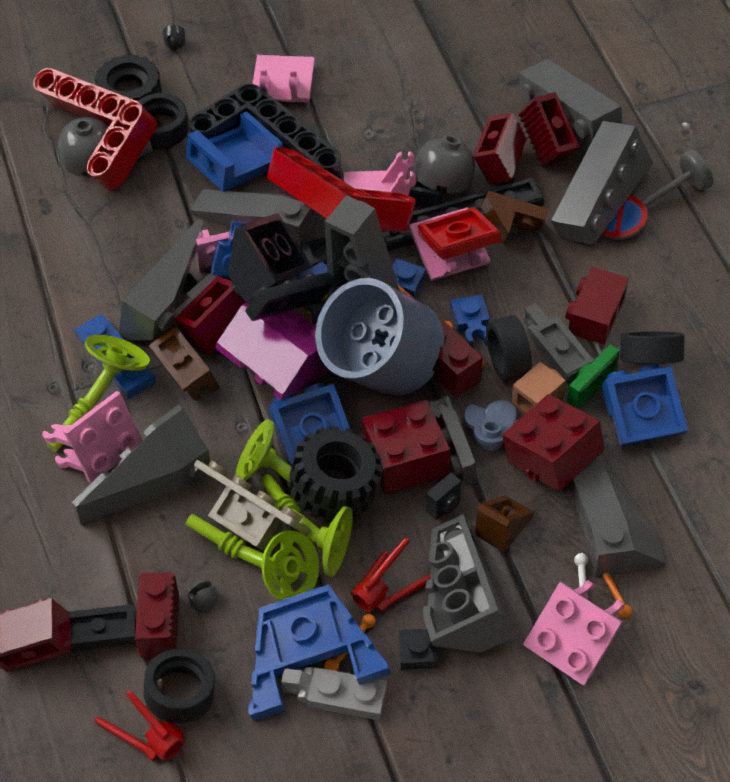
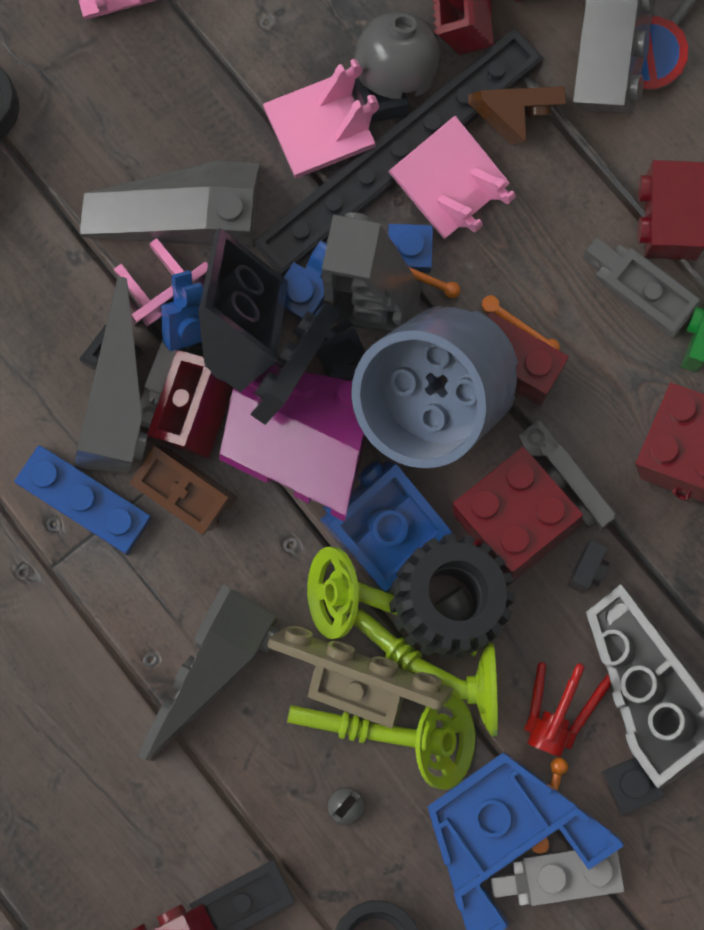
camera: 20 degrees left, 25 degrees up
(97, 438) = (128, 652): bright pink plate -> none
(113, 363) = (97, 538): lime dish -> none
(156, 614) = (308, 865): dark red brick -> none
(234, 154) = (106, 125): blue panel -> none
(291, 131) = (138, 66): black beam -> none
(325, 191) = (271, 171): red beam -> none
(459, 233) = (467, 171): red tile -> none
(470, 316) = (515, 278): blue plate -> none
(490, 423) = (606, 426): sand blue plate -> none
(501, 521) = (671, 571): reddish brown slope -> none
(508, 347) = (592, 324): black tyre -> none
(536, 386) = (648, 370): nougat brick -> none

